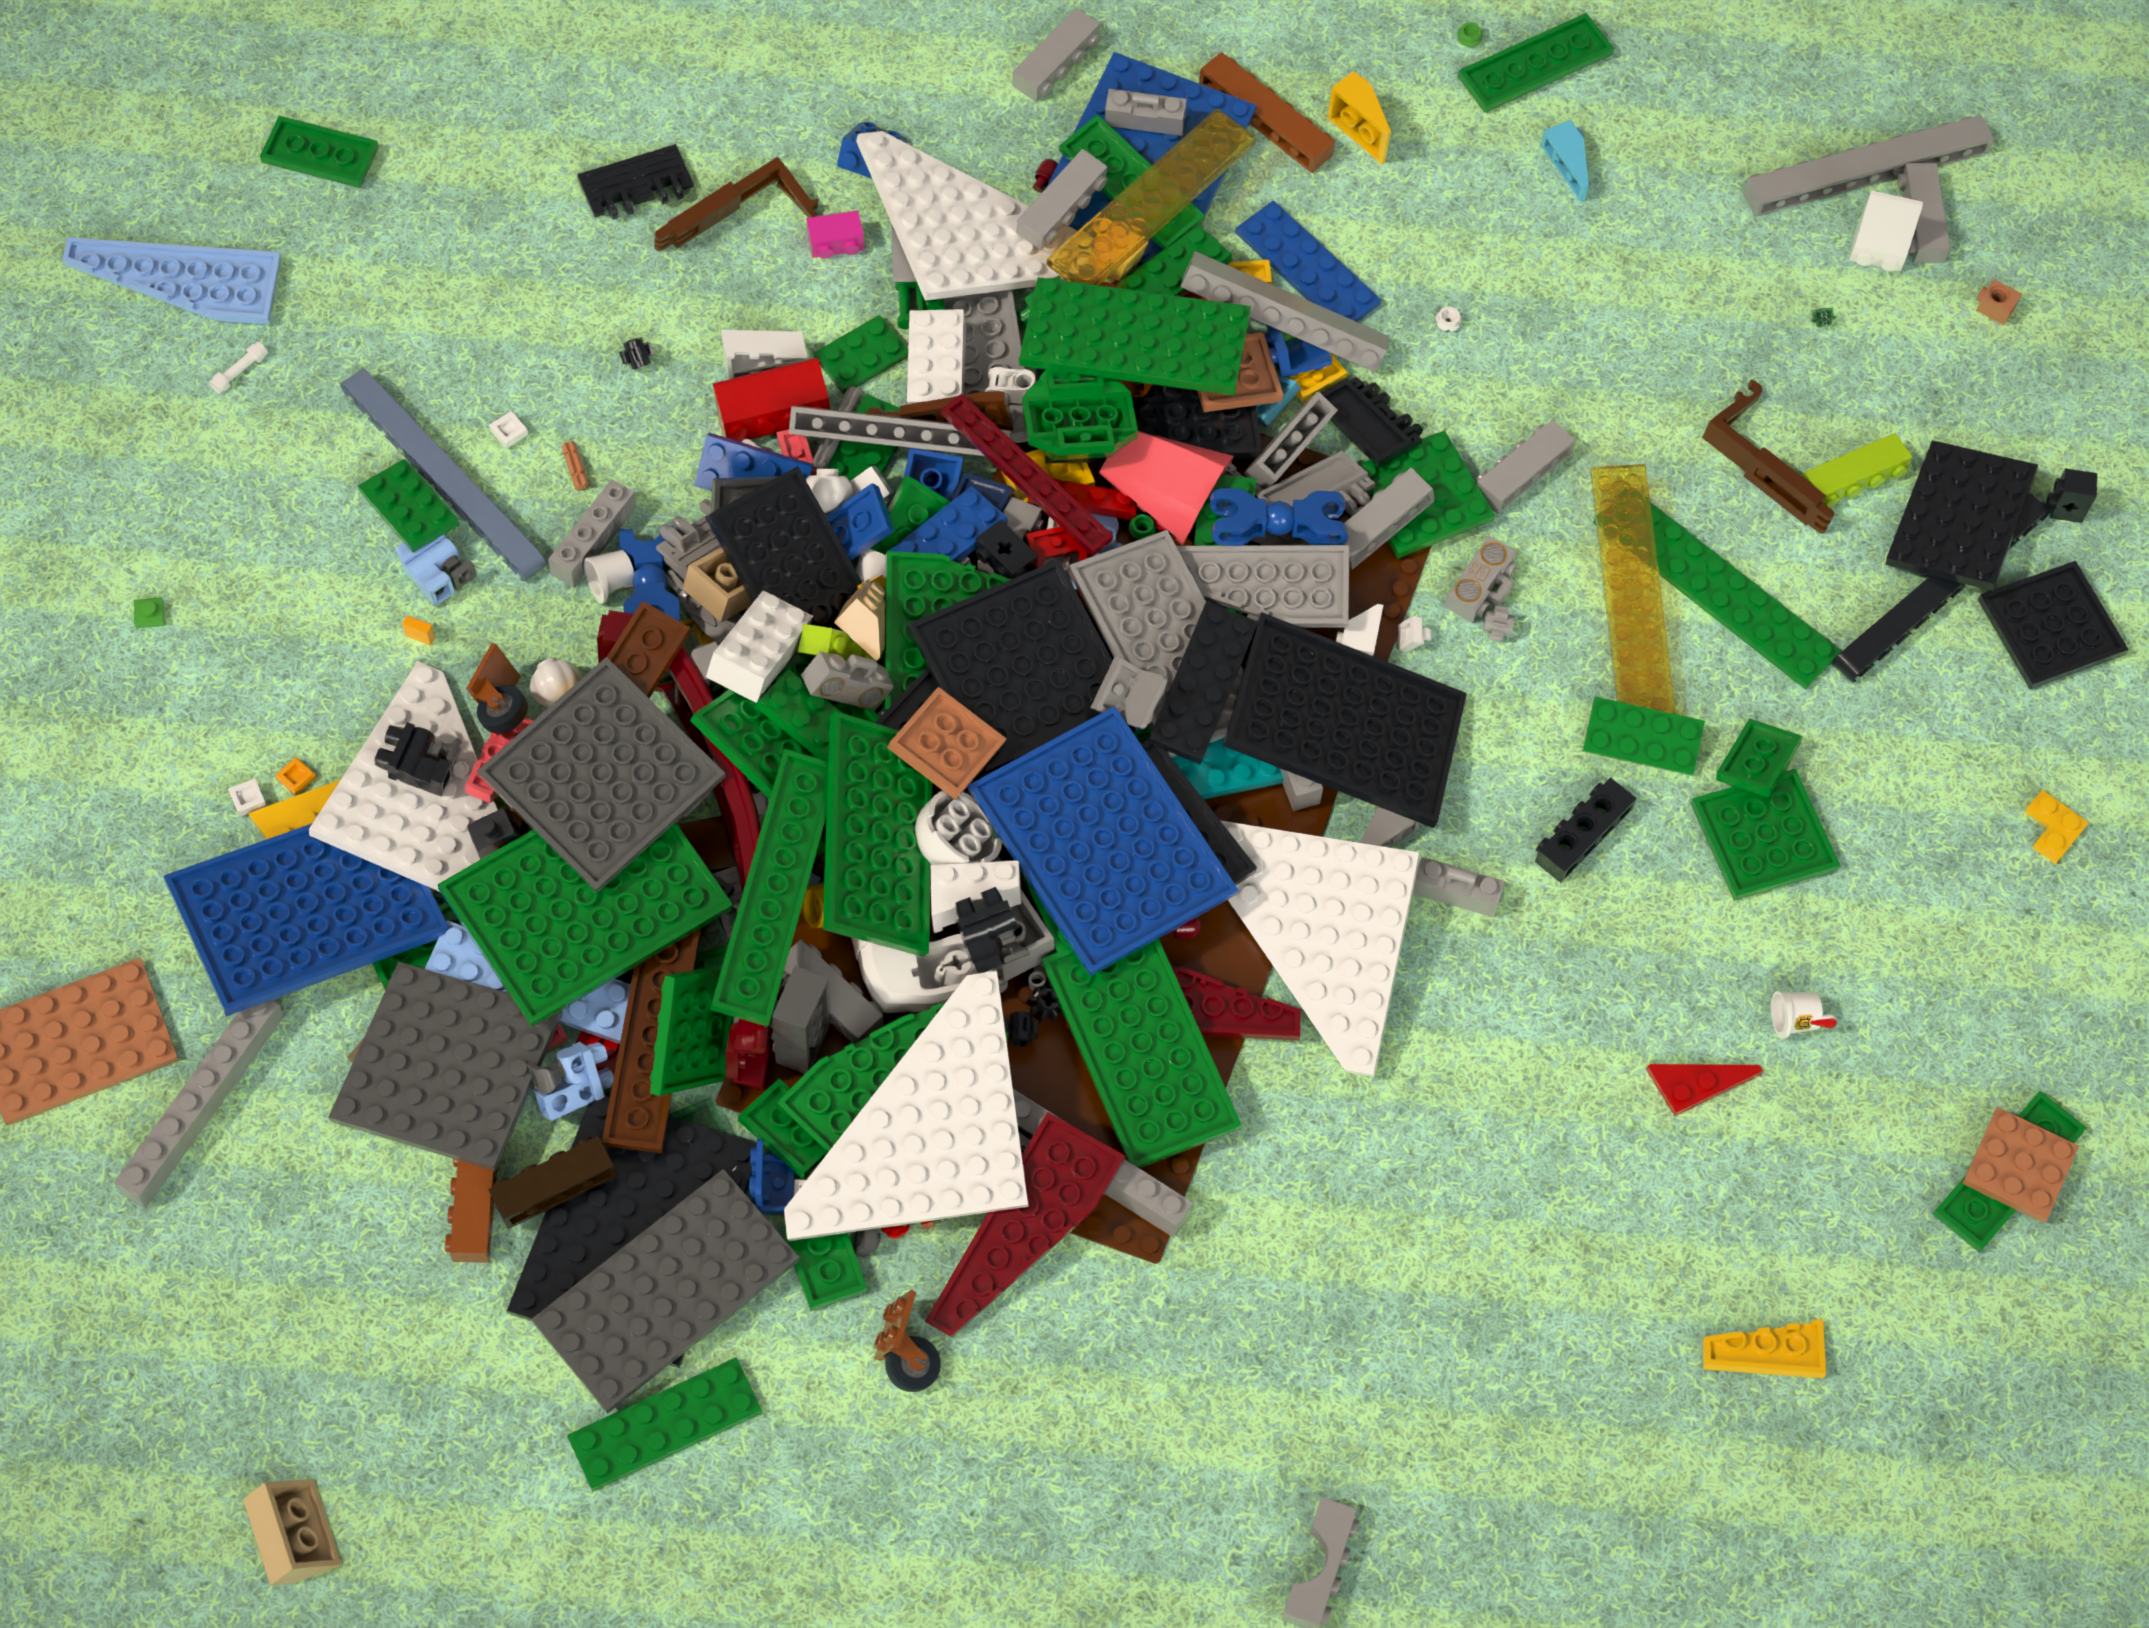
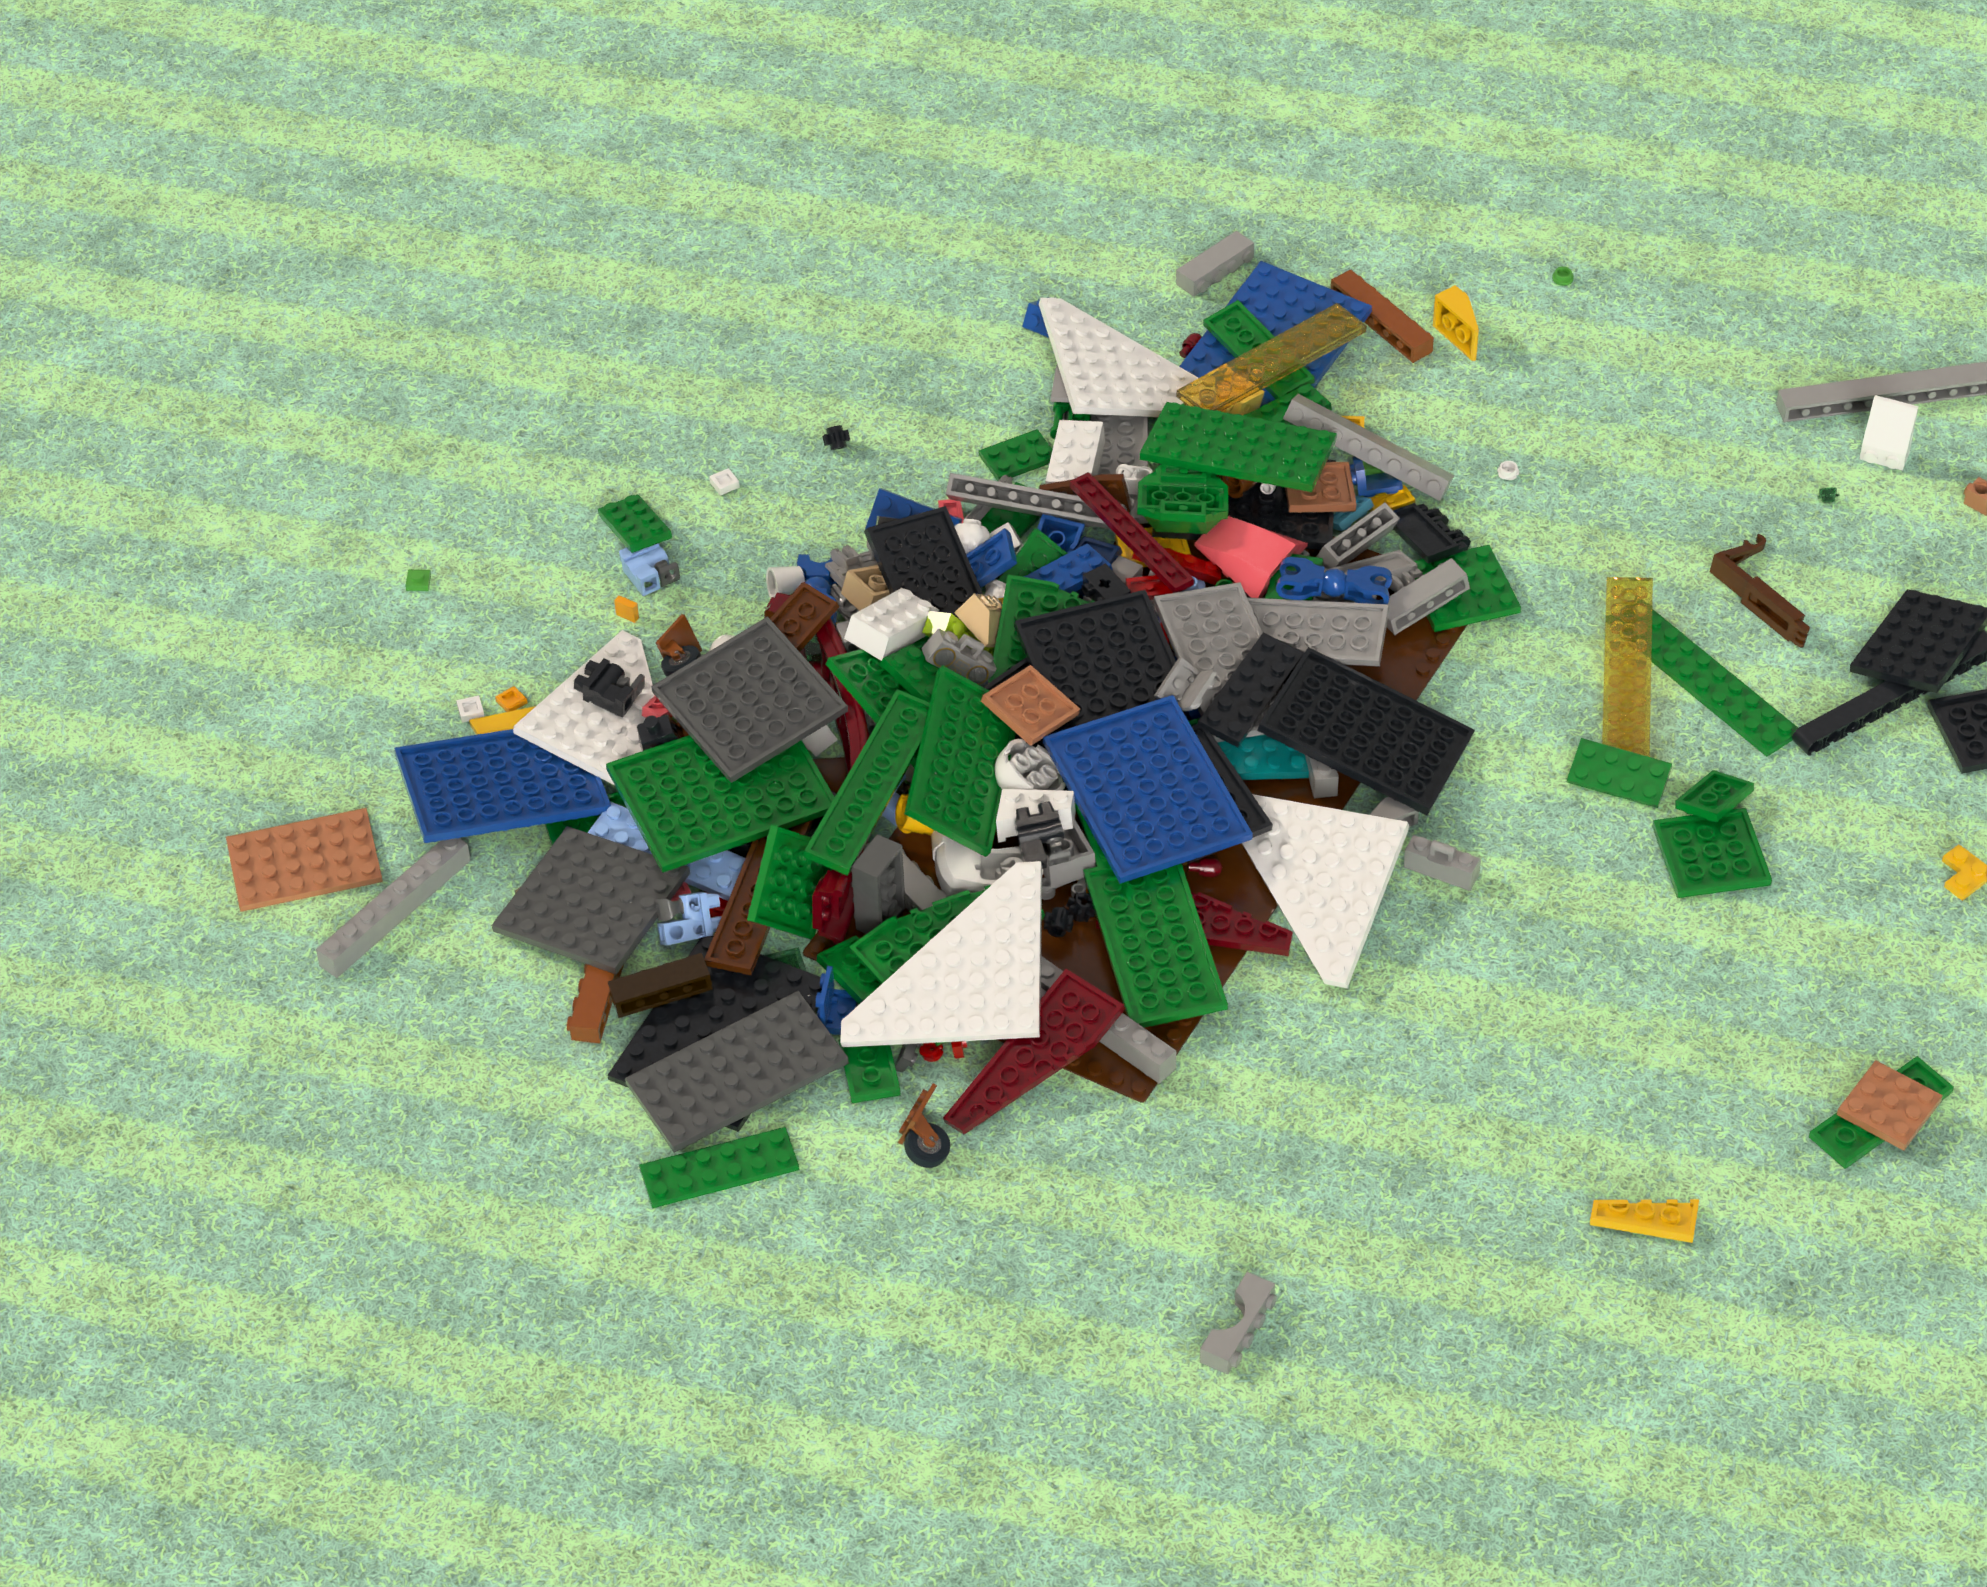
camera: 15 degrees right, 15 degrees down
(200, 279) = (498, 361): light blue wing -> none
(220, 382) = (534, 414): white bar -> none
(291, 1530) = (408, 1203): tan slope -> none
(319, 151) = (611, 284): green plate -> none
(441, 471) = (667, 506): sand blue beam -> none
(575, 466) = (773, 511): nougat axle -> none
(592, 532) = (778, 552): light grey brick -> none
(636, 180) = (858, 323): black hinge -> none
(728, 200) = (929, 340): reddish brown hinge -> none
(758, 351) = (936, 446): white wedge -> none
(763, 400) = (926, 474): red slope -> none
(835, 234) = (1011, 371): dark pink brick -> none
(1062, 199) = (1197, 354): light grey brick -> none
(1145, 112) = (1278, 300): light grey piece -> none
(1306, 263) = (1395, 421): blue plate -> none
(1362, 630) = (1395, 673): white slope -> none
(1412, 634) = (1437, 684): white tile -> none
(1474, 587) = (1503, 651): light grey piece -> none
(1498, 623) = (1510, 683): light grey gear -> none
(1525, 465) = (1554, 576): light grey brick -> none
(1535, 62) = (1614, 299): green plate -> none
(1562, 862) = (1557, 833): black brick -> none
(1567, 151) = (1628, 360): medium azure slope -> none
(1692, 1084) = (1615, 1024): red wing -> none
(1798, 1013) = (1716, 979): white hat -> none
(1860, 469) = (1840, 603): lime brick -> none
(1930, 237) = (1929, 429): light grey brick -> none

